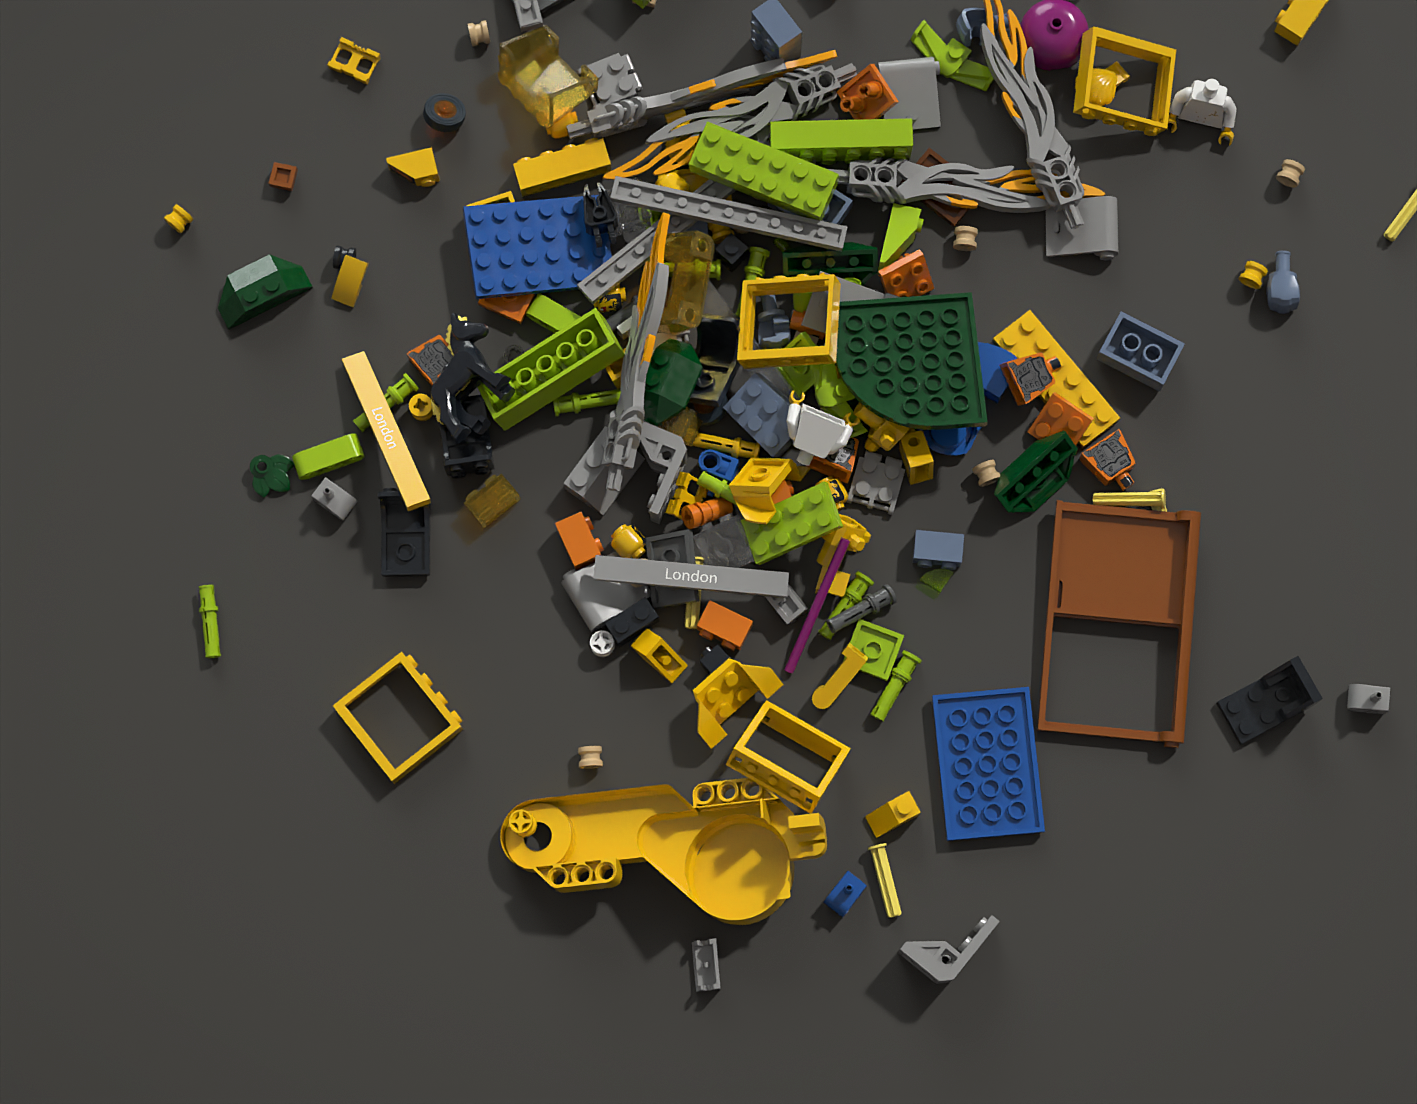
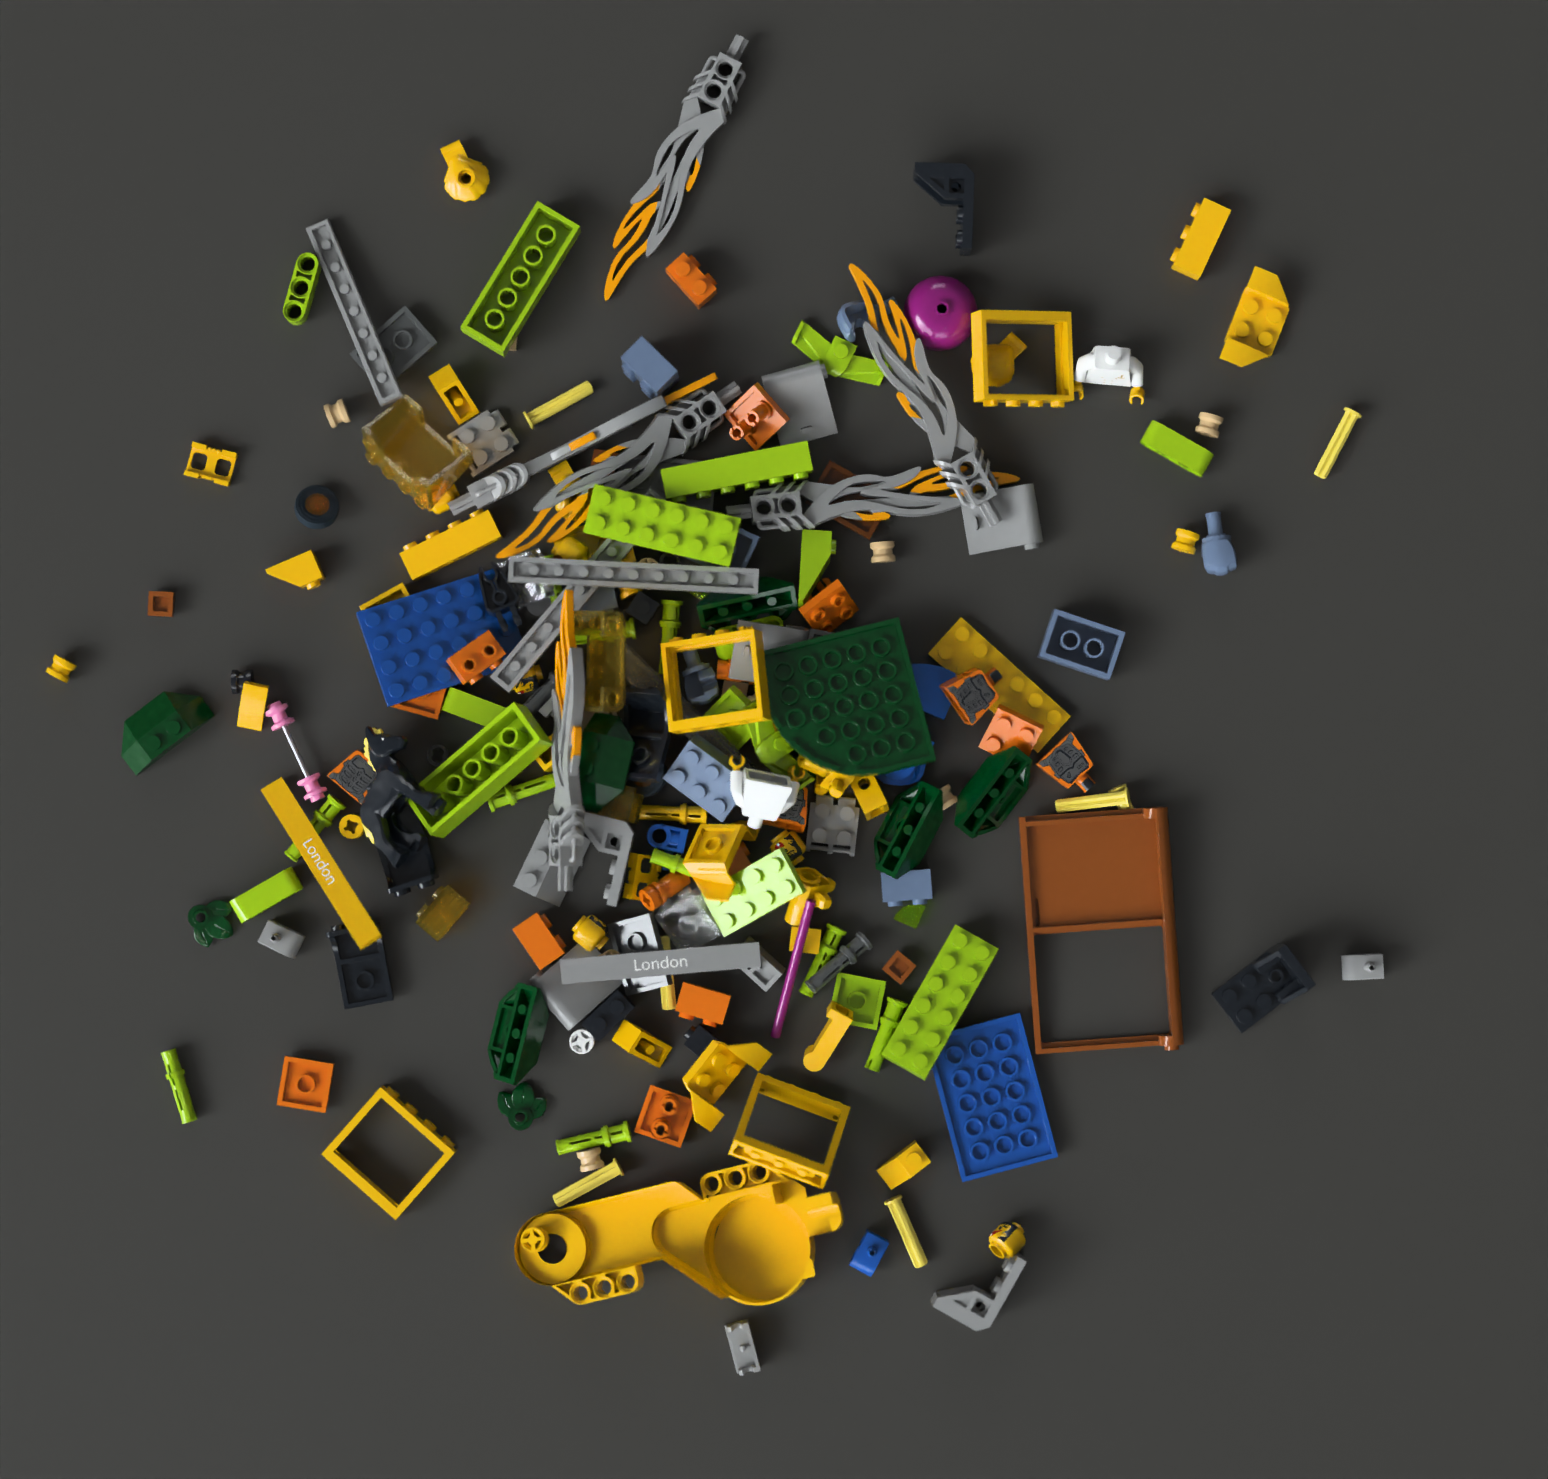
camera: 15 degrees left, 10 degrees up
(330, 640) = (305, 1084): none -> orange plate
(389, 358) = (281, 720): none -> bright pink axle
(534, 693) = (521, 1102): none -> dark green plate
(543, 623) = (517, 1033): none -> dark green wedge
(567, 266) = (476, 657): none -> orange brick
(583, 780) = (588, 1183): none -> light yellow axle
(590, 34) = (453, 394): none -> yellow slope
(608, 738) = (608, 1138): none -> lime pin
(669, 728) = (665, 1116): none -> orange plate
(685, 58) = (558, 403): none -> light yellow axle
(918, 624) = (899, 967): none -> dark orange plate
(950, 494) = (908, 829): none -> dark green wedge
(953, 662) = (940, 1002): none -> lime brick
(982, 903) = (1007, 1240): none -> yellow head
(1257, 190) = (1176, 448): none -> lime beam
(1349, 85) = (1256, 320): none -> yellow piece

